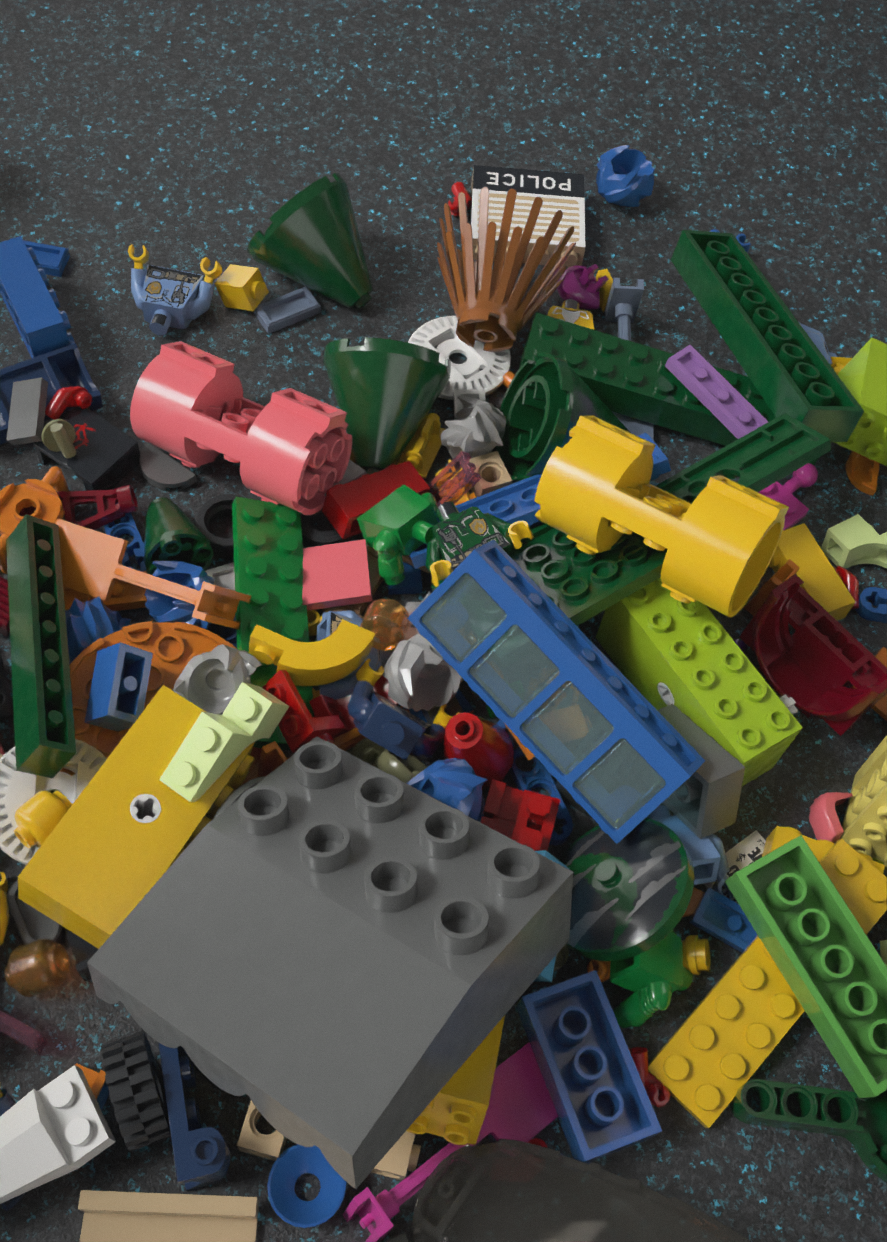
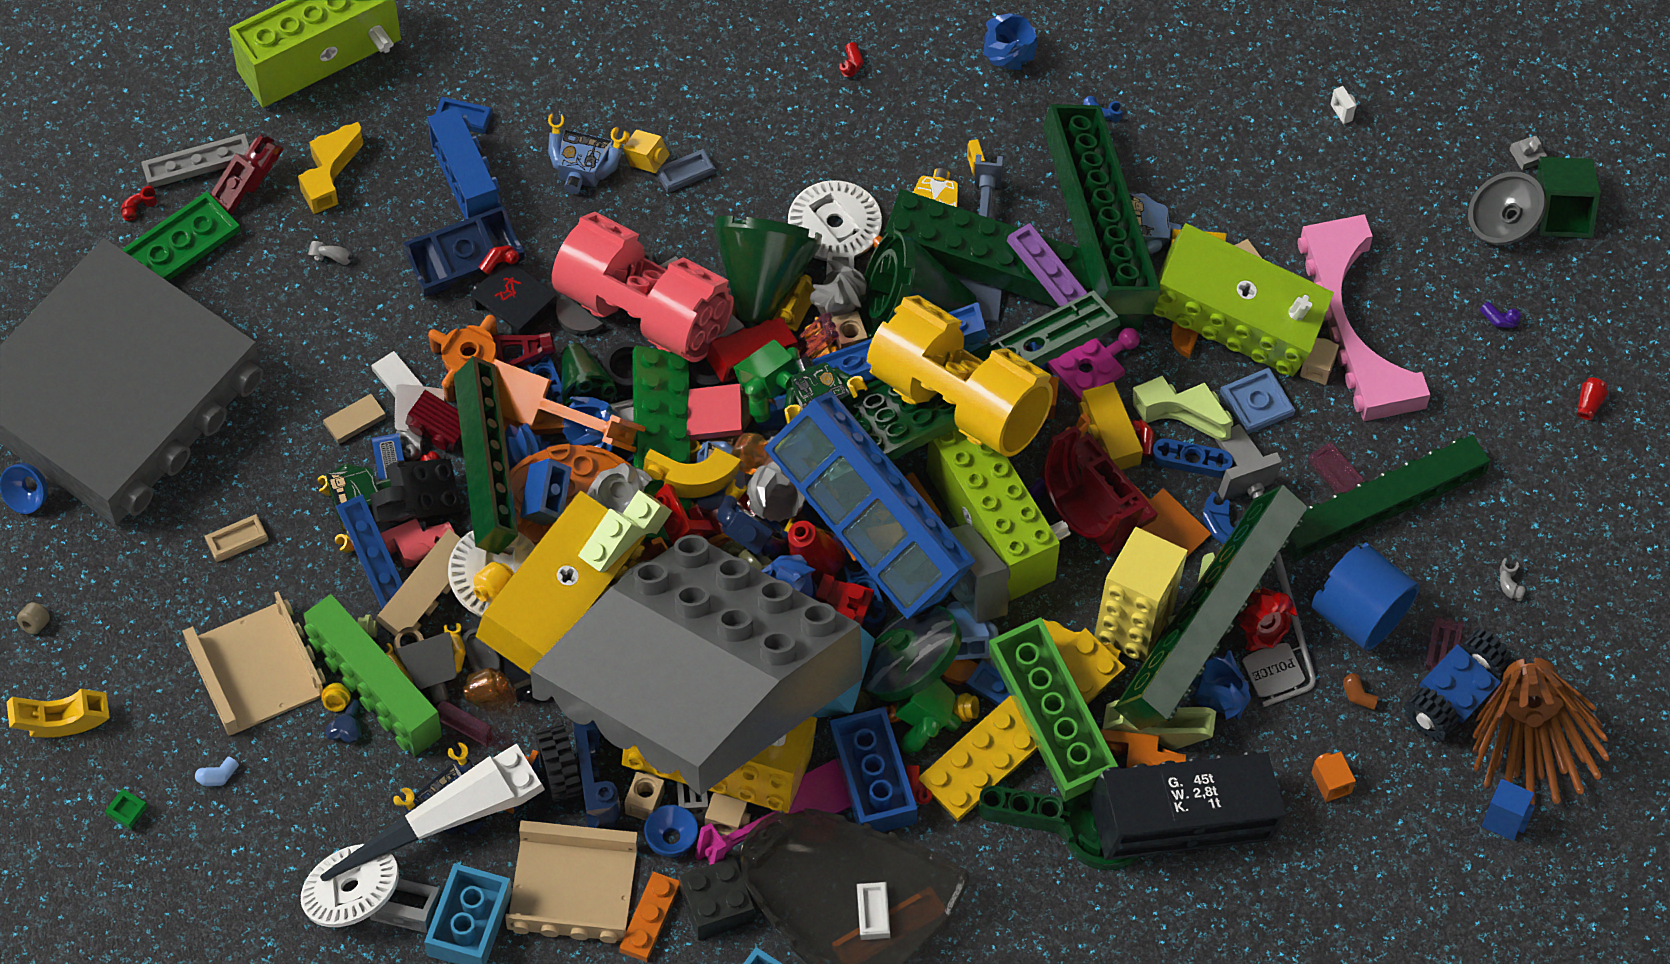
camera: 10 degrees right, 0 degrees up
(27, 411) = (466, 266): dark grey tile -> none
(59, 436) = (493, 289): olive plate -> none
(318, 243) = (717, 116): dark green cone -> none
(485, 297) = (857, 173): dark orange plant -> none
(558, 192) = (912, 80): panel -> none
(582, 286) = (952, 155): magenta piece -> none
(824, 816) = (1084, 615): coral hair -> none

